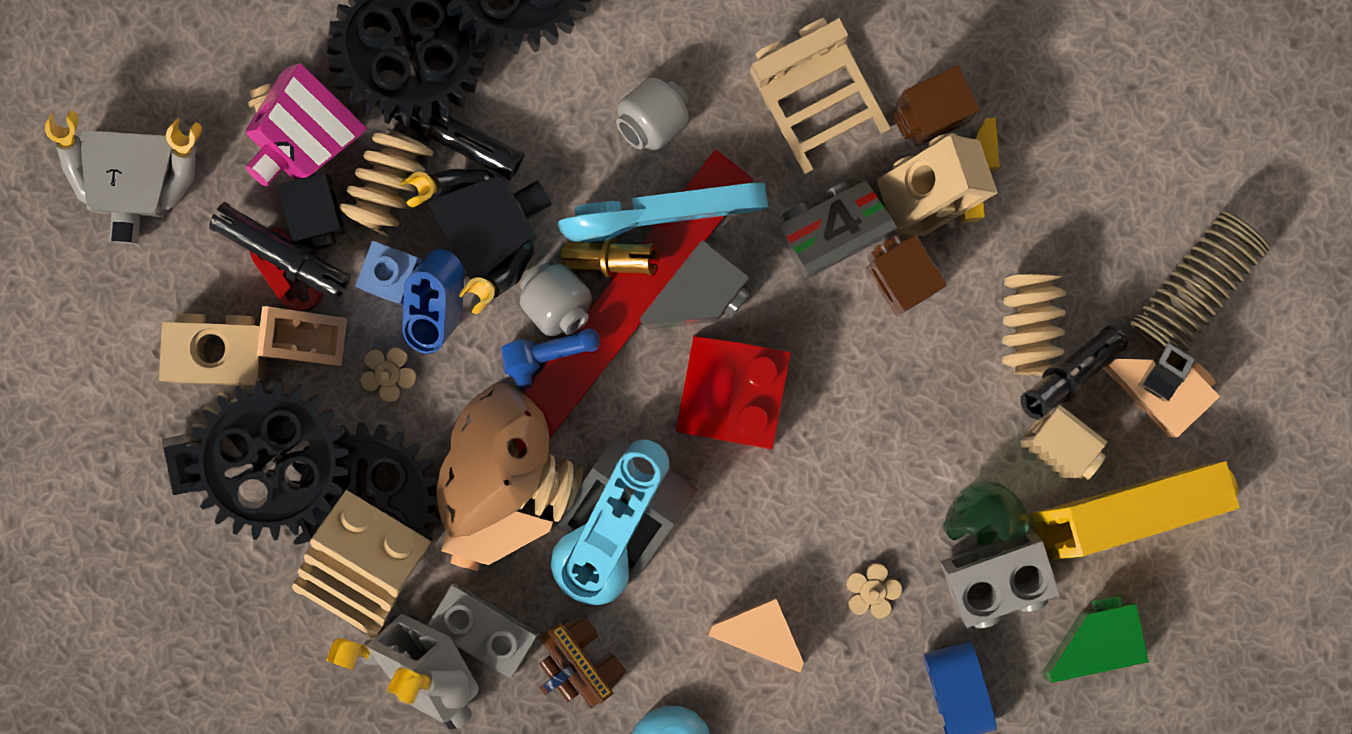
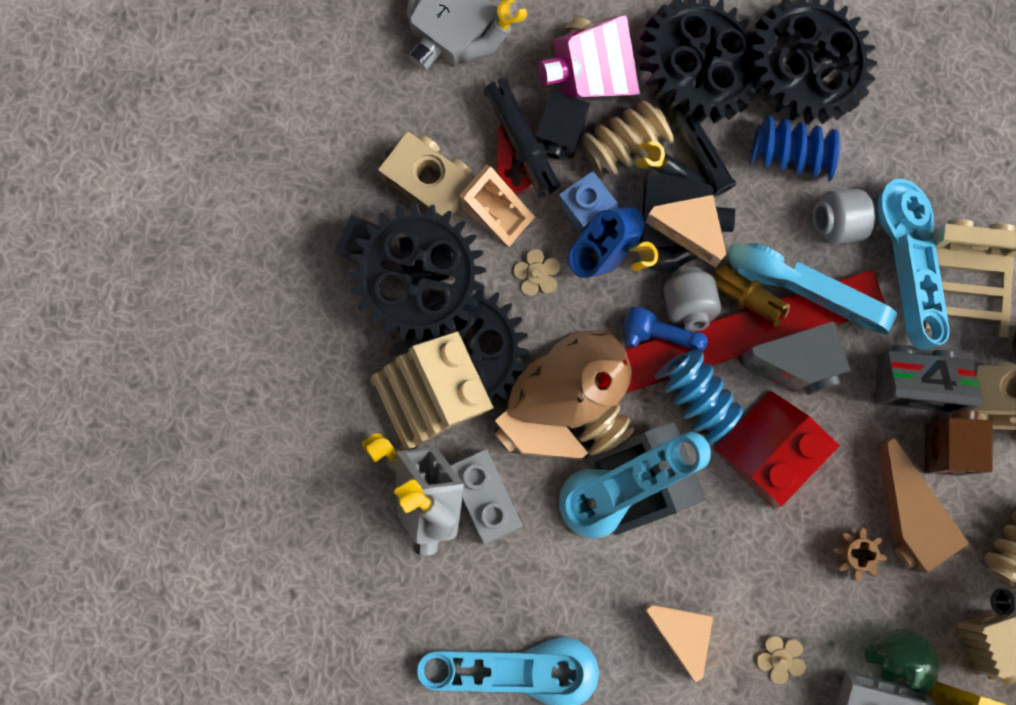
camera: 30 degrees right, 5 degrees down
(504, 232) = (691, 225): none -> light nougat slope
(559, 77) = (796, 147): none -> blue piece
(590, 679) = (530, 567): reddish brown hips -> none
(625, 388) = (702, 393): none -> dark azure piece
(746, 112) = (910, 225): none -> medium azure beam
(892, 447) = (848, 562): none -> medium nougat gear
(914, 369) = (916, 517): none -> medium nougat slope

